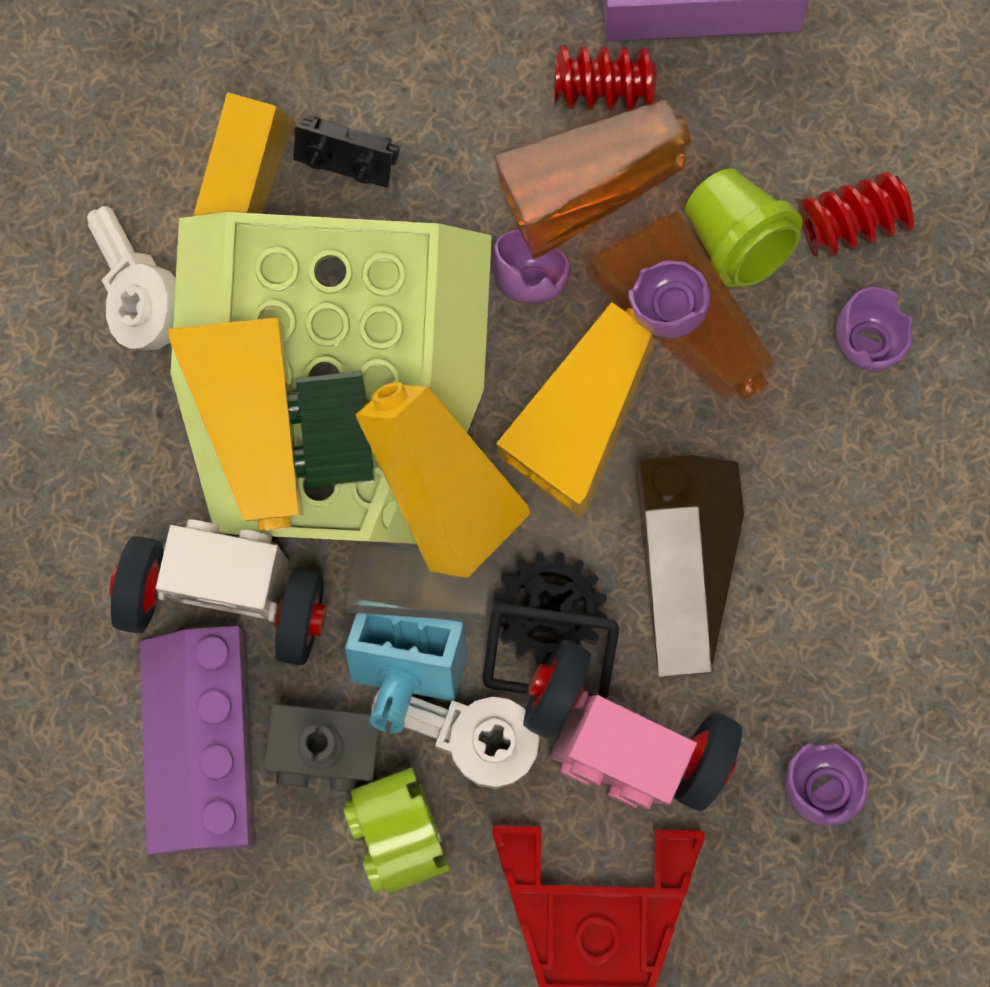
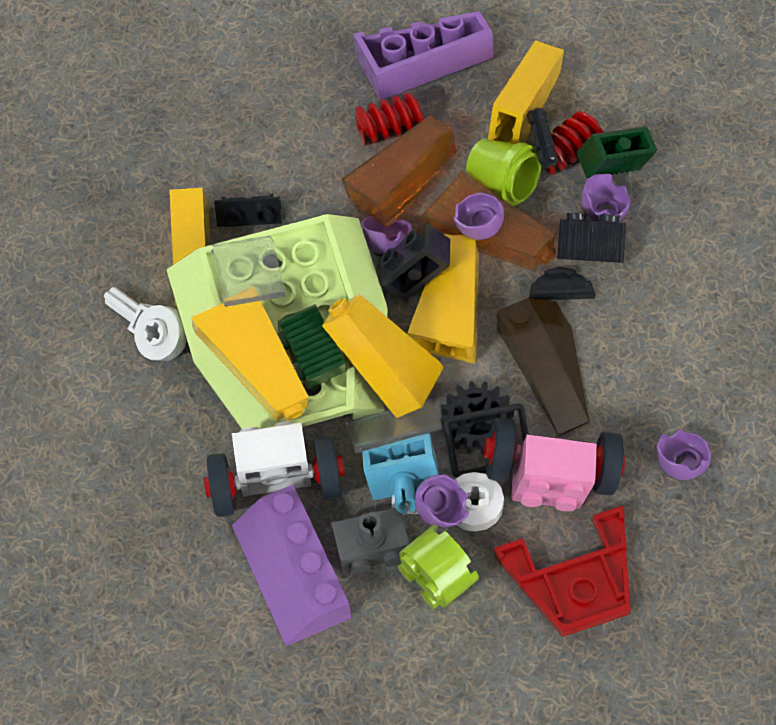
camera: 15 degrees left, 15 degrees down
(281, 282) = (248, 271): none -> clear piece
(438, 741) = (441, 501): none -> medium lavender hair
(550, 334) = (415, 261): none -> black brick
(755, 439) = (561, 284): none -> black tile
(815, 202) = (542, 137): none -> black axle
(820, 115) = (524, 92): none -> yellow slope
(827, 388) = (591, 238): none -> black brick
(920, 261) = (616, 151): none -> dark green brick

